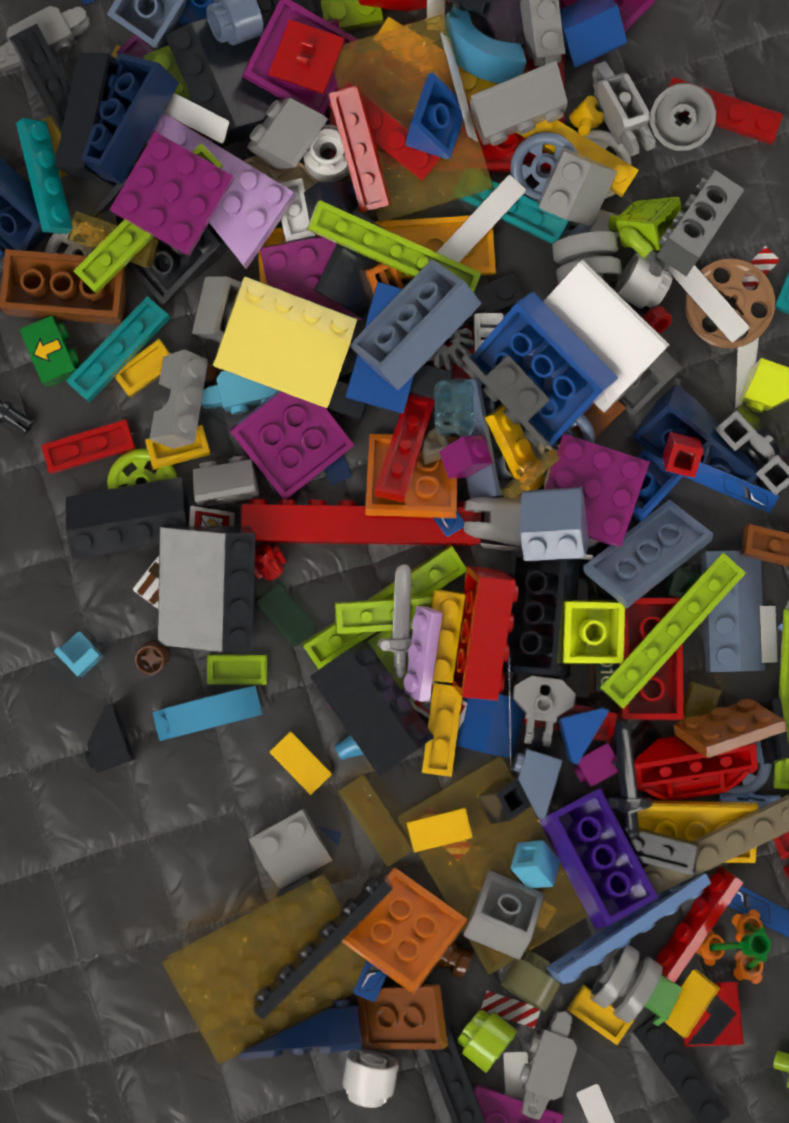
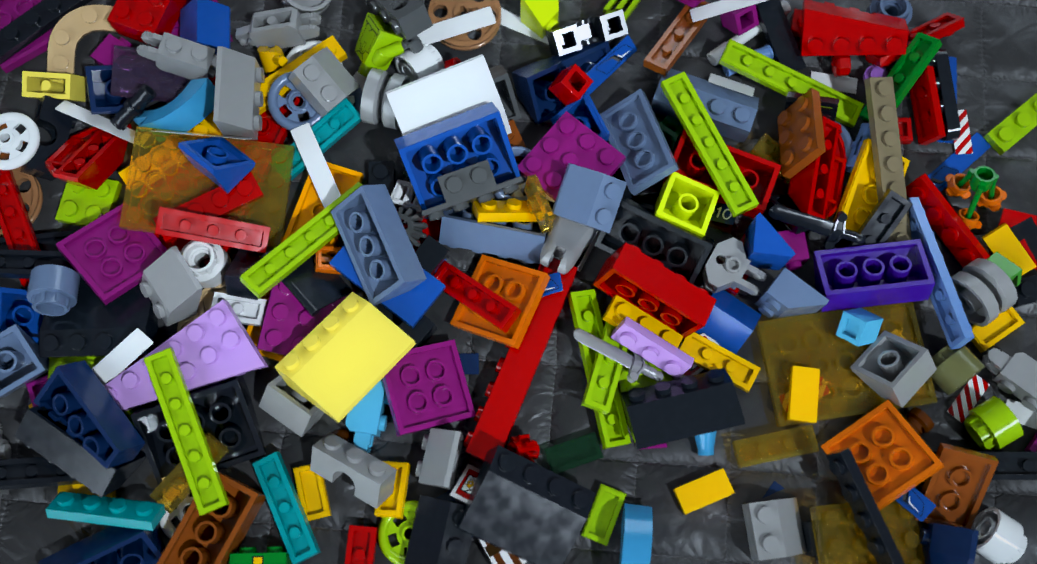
camera: 75 degrees left, 10 degrees down
(172, 193) = (174, 400): magenta plate -> none
(306, 56) = (116, 244): red piece -> none
(432, 445) = (483, 272): dark tan tile -> none
(454, 405) = (460, 243): clear light blue piece -> none
(466, 456) = (503, 248): magenta brick -> none
(503, 801) = (800, 329): black brick -> none
(510, 714) = (728, 297): sticker -> none

